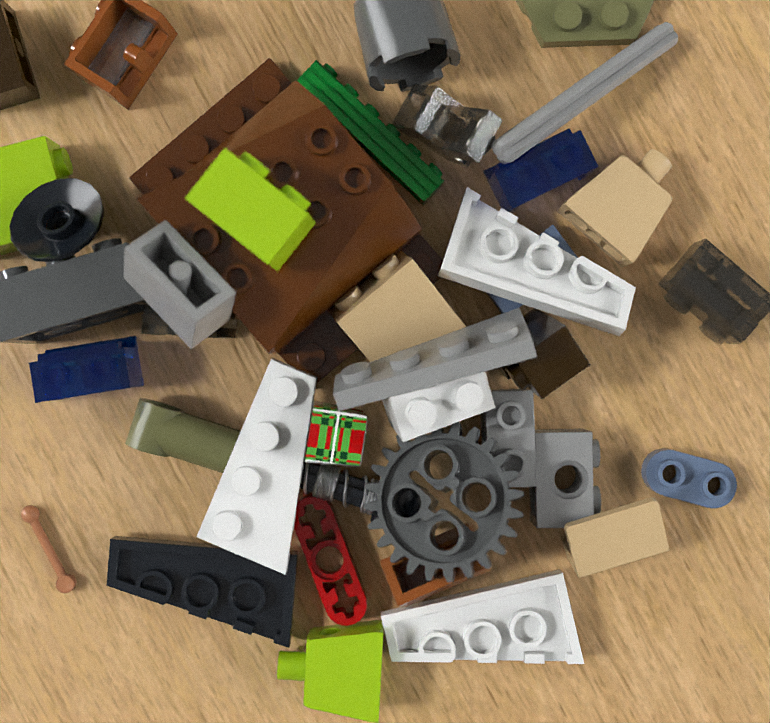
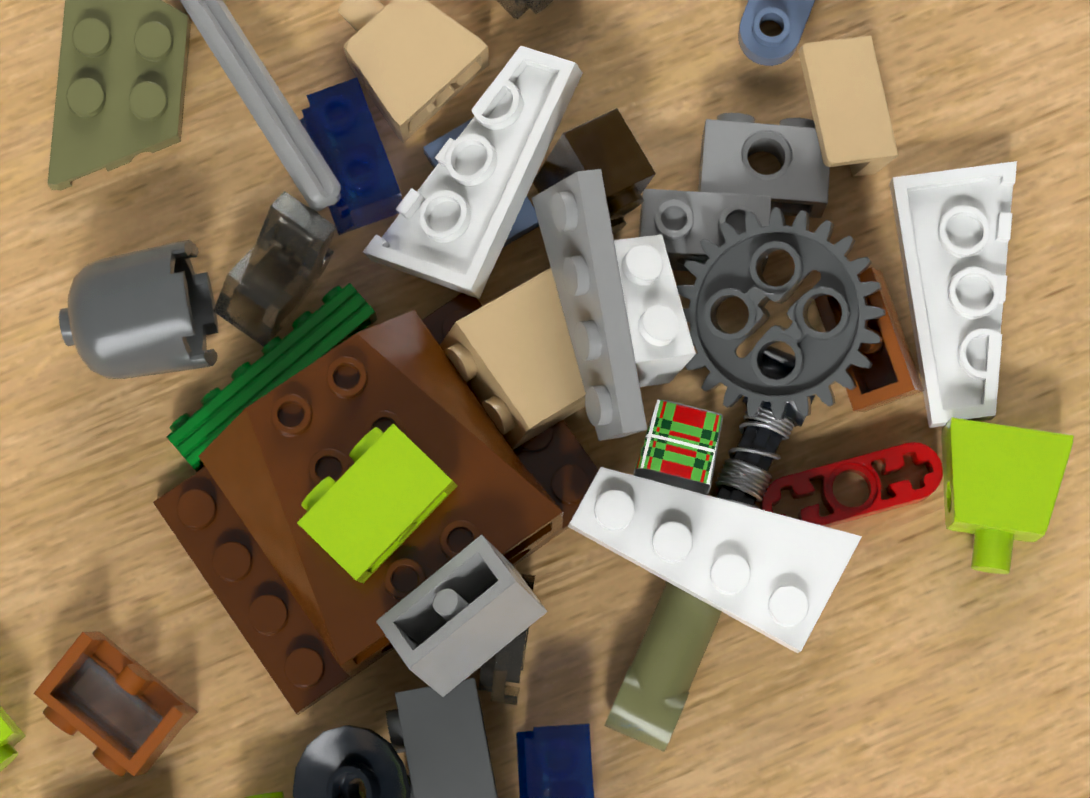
camera: 85 degrees left, 10 degrees down
(207, 583) = (869, 656): black wing -> none

